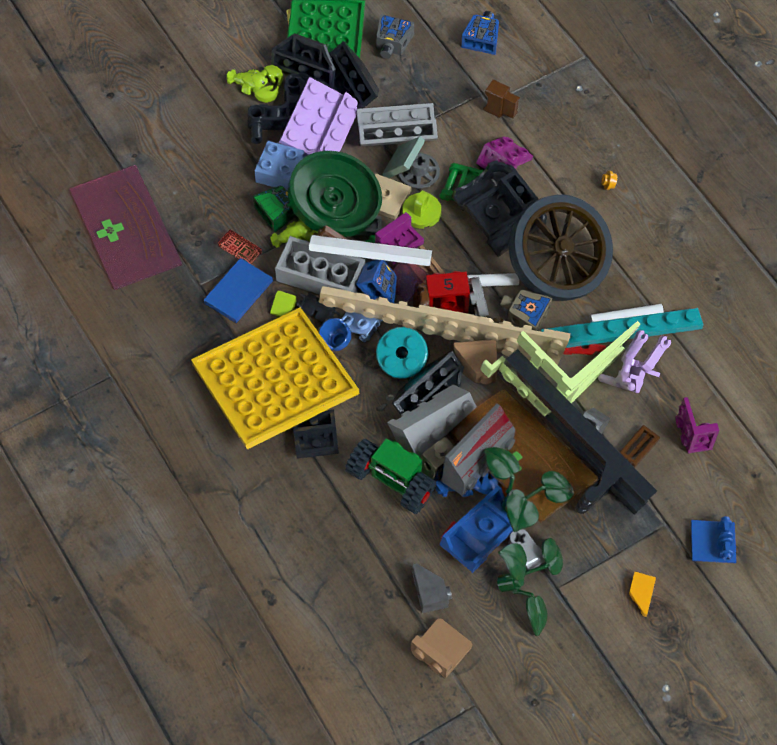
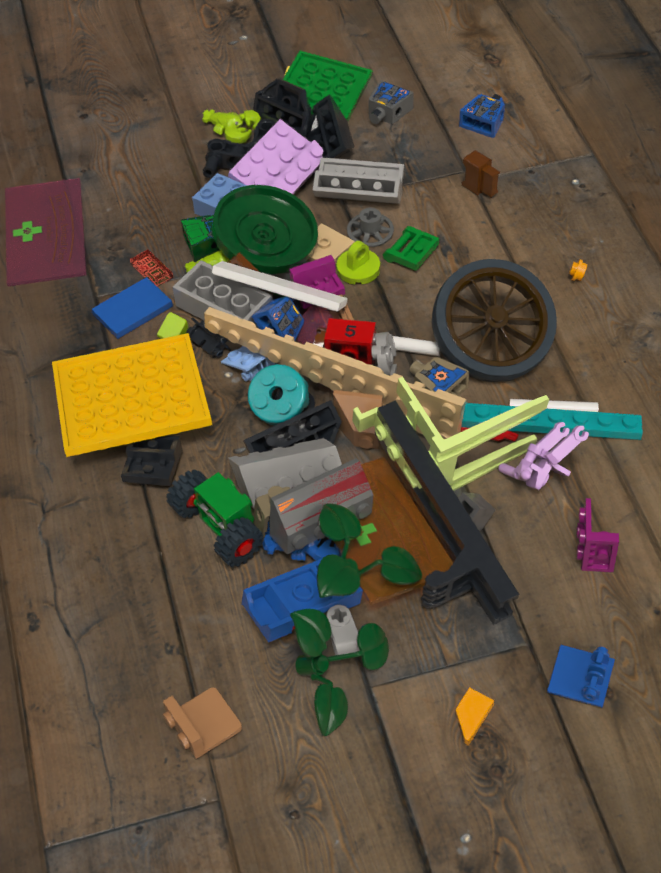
camera: 20 degrees right, 10 degrees down
(335, 333) = (214, 365): blue hair -> none
(403, 157) = (355, 210): sand green tile -> none
(430, 589) = (214, 653): flat silver slope -> none
(496, 202) = (434, 261): black piece -> none
(504, 151) = (462, 228): magenta bracket -> none
(645, 451) = (525, 553): reddish brown tile -> none

